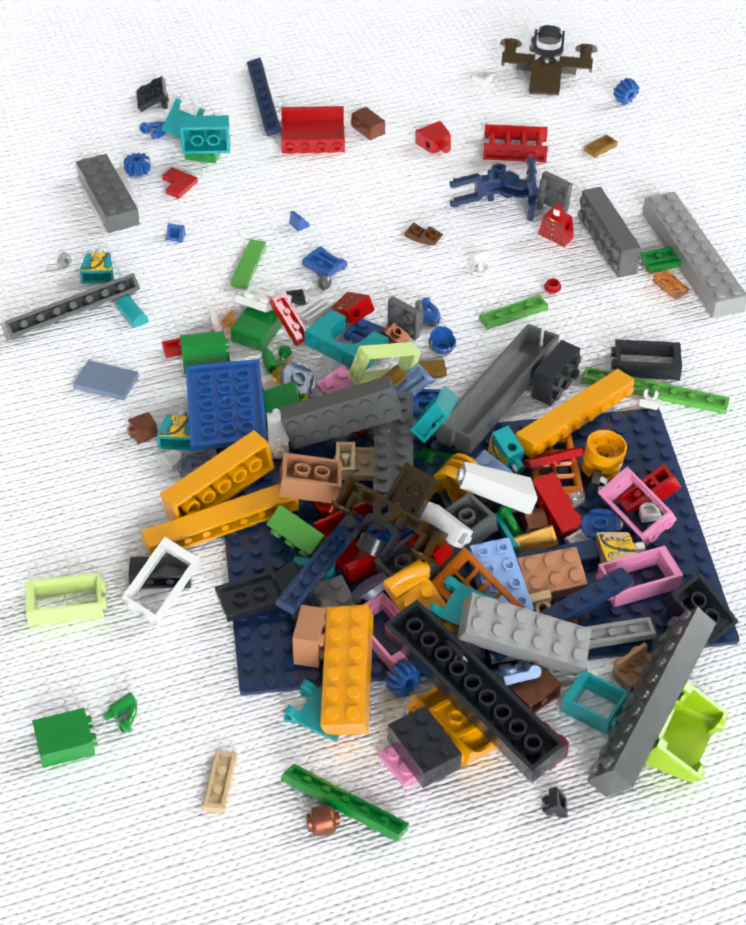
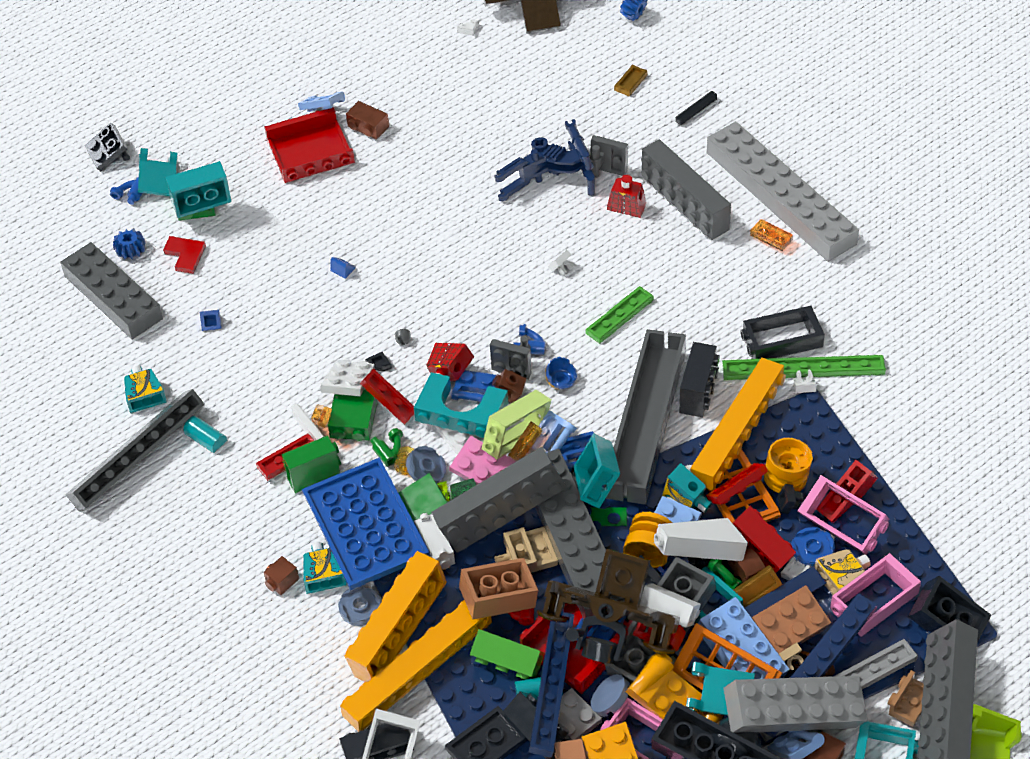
camera: 15 degrees left, 5 degrees up
(63, 259) = (98, 389): light grey hinge -> none
(106, 380) = (212, 527): sand blue tile -> none
(171, 459) = (327, 603): white tile -> none
(248, 264) = (308, 336): bright green tile -> none
(264, 97) = (235, 116): dark blue plate -> none
(311, 309) = (409, 363): white tile -> none
(323, 262) = (391, 315): blue plate -> none
(337, 100) = (326, 102): none -> light blue plate
(425, 236) = (485, 246): reddish brown slope -> none
(434, 138) = (448, 120): red torso -> none
(435, 368) = (565, 407): pearl gold tile -> none
(515, 152) = (539, 115): red fence -> none
(552, 286) = (649, 271): red plate -> none
(577, 498) = (778, 522): clear plate -> none
(647, 177) = (696, 107): none -> black axle
(649, 512) = (855, 516): white tile -> none
(660, 259) = (750, 207): green plate -> none

